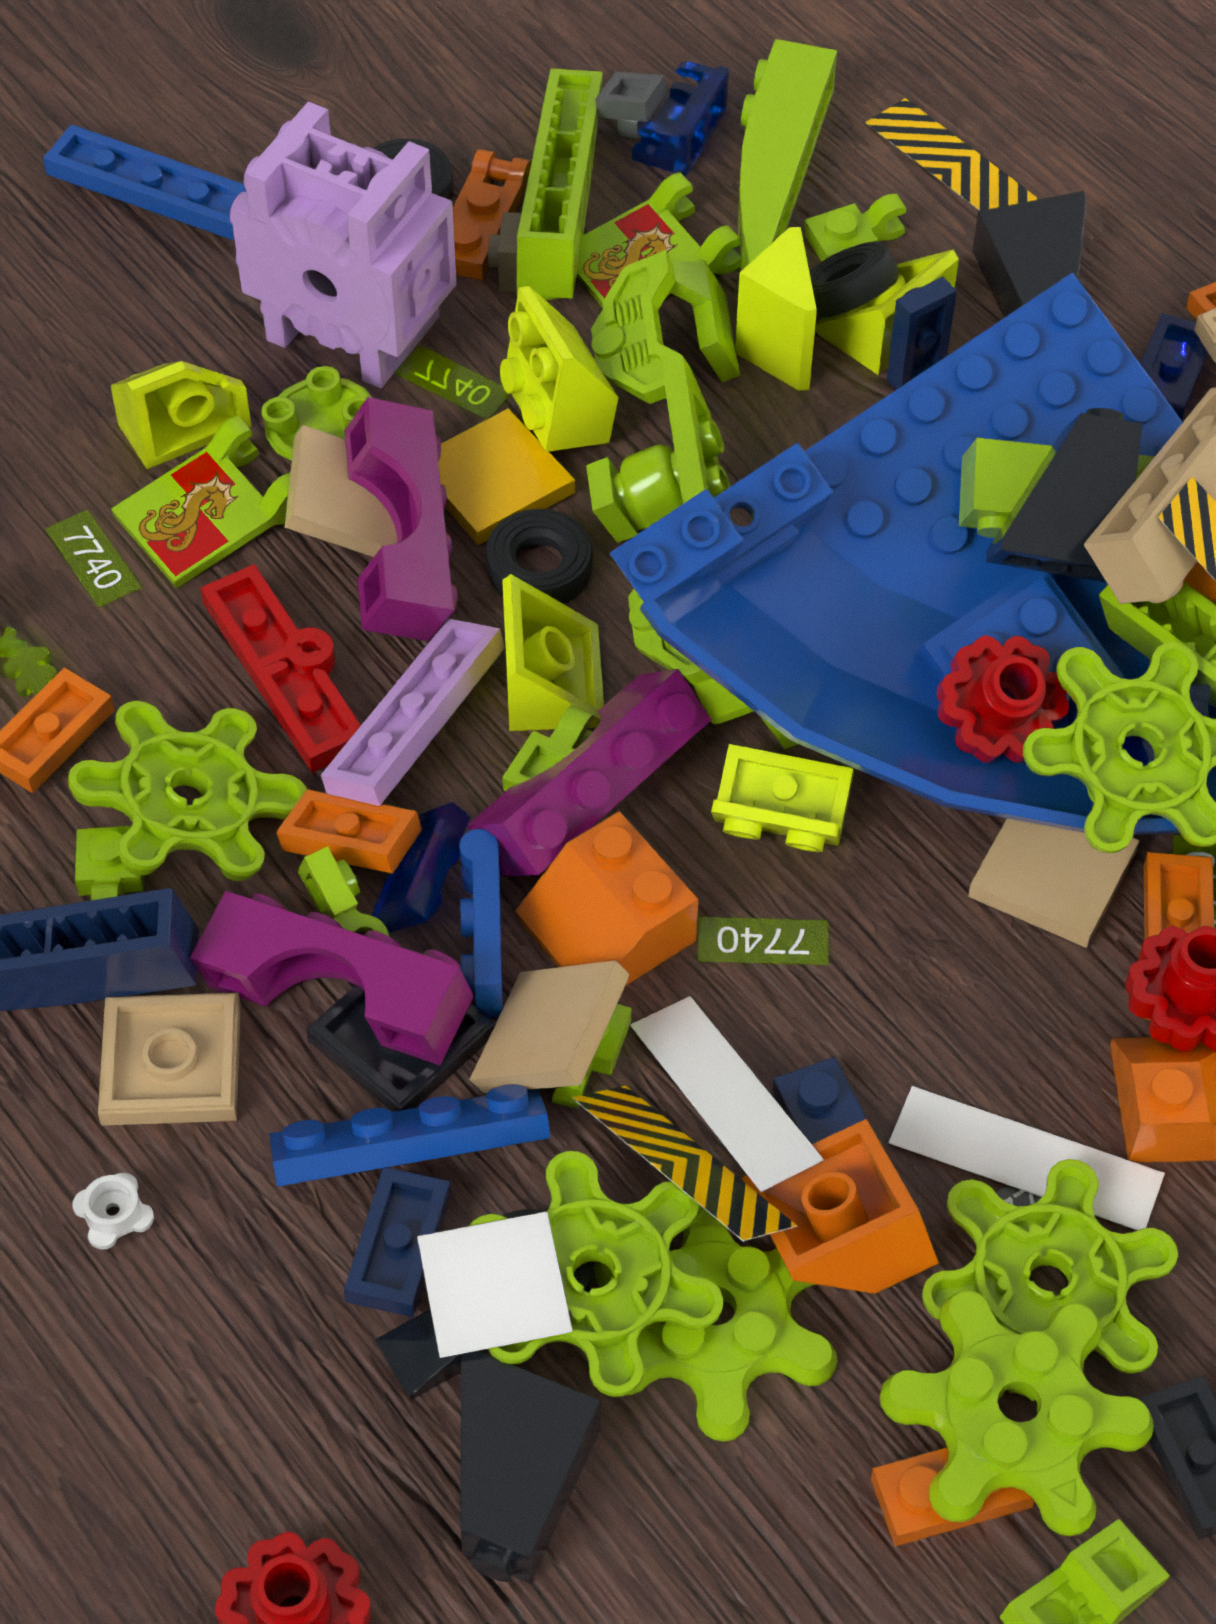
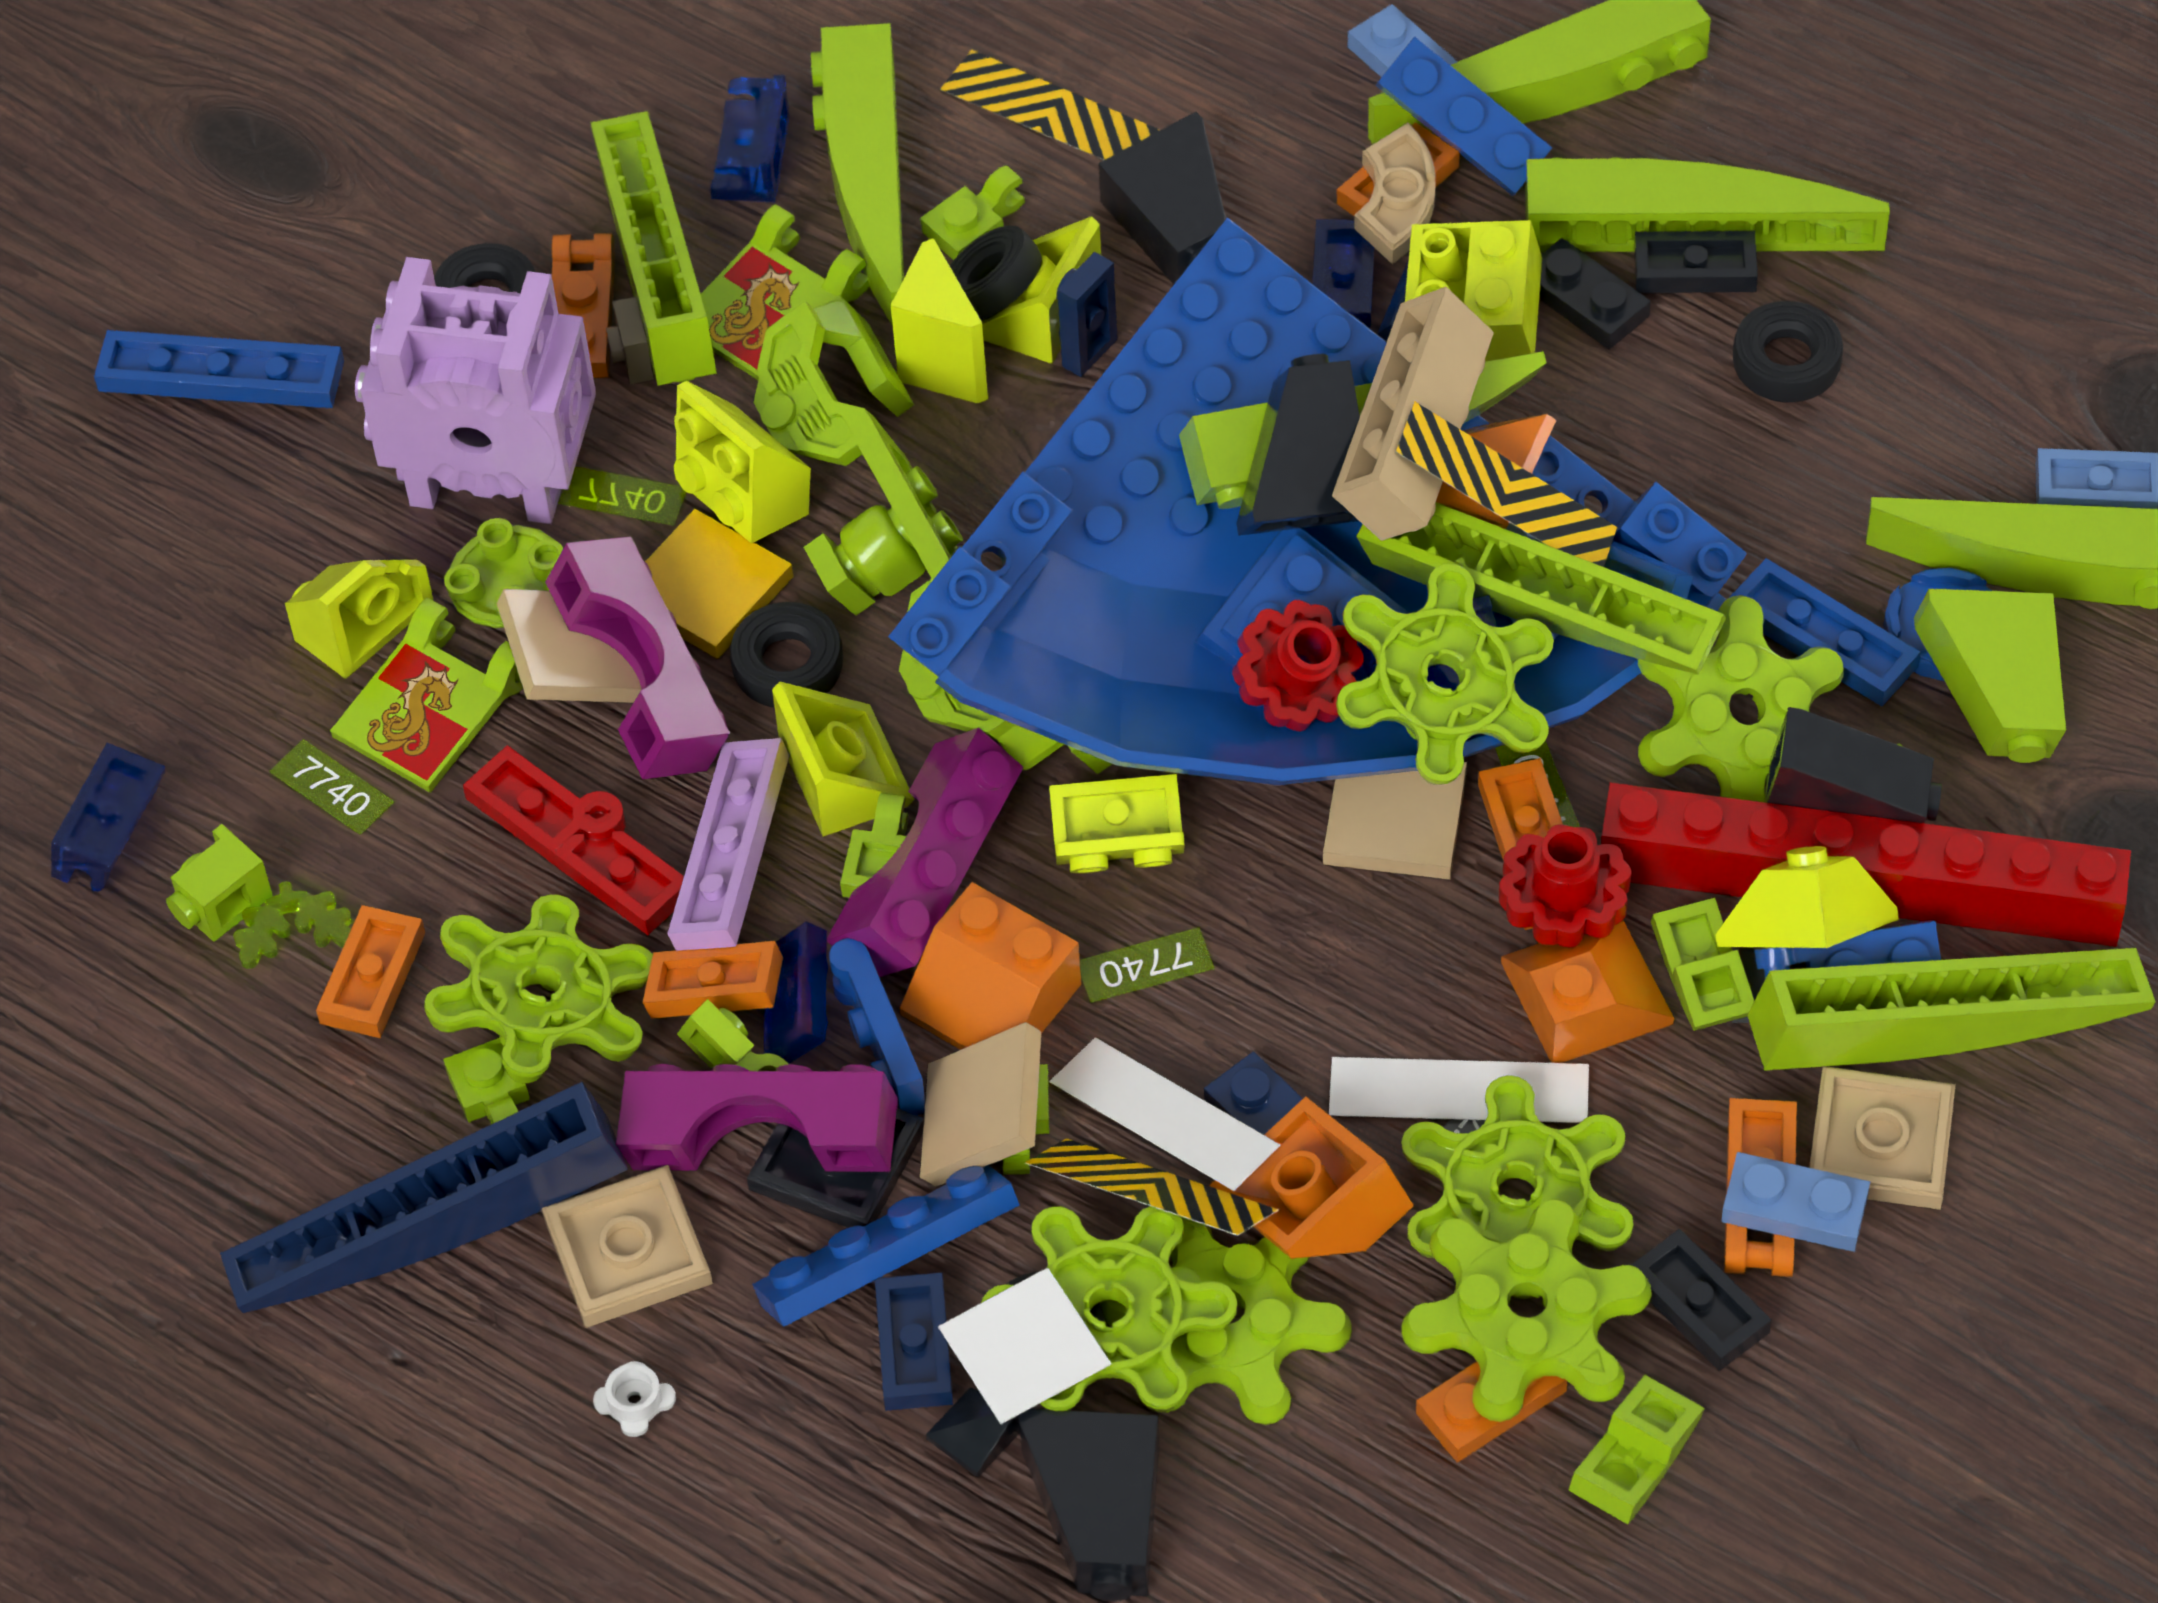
camera: 15 degrees left, 0 degrees up
(631, 100) = (693, 137): dark grey tile -> none

